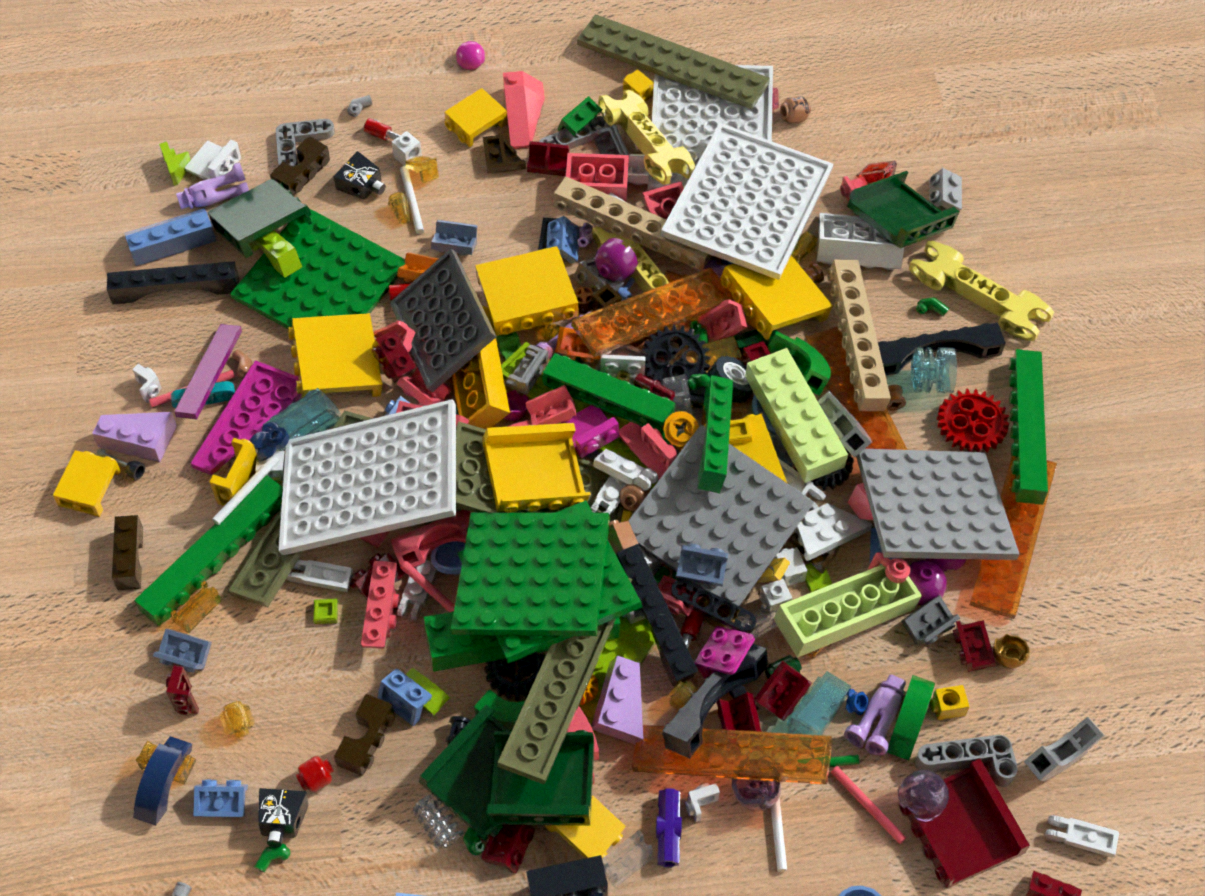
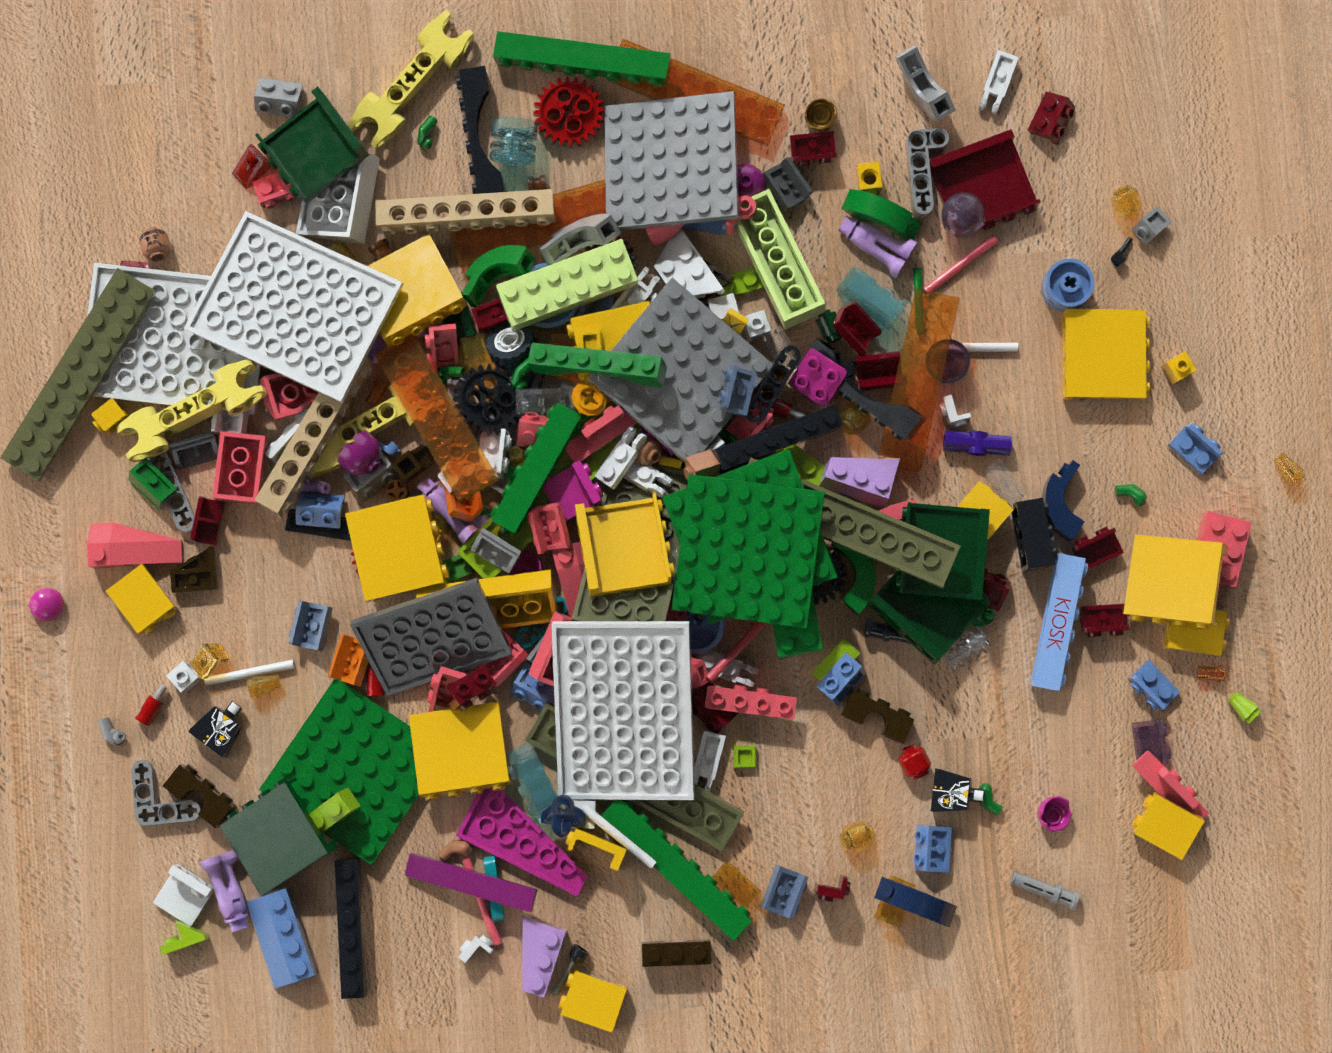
camera: 90 degrees left, 25 degrees up
(653, 386) = (531, 422): dark red axle -> none
(856, 702) = (864, 262): blue plate -> none

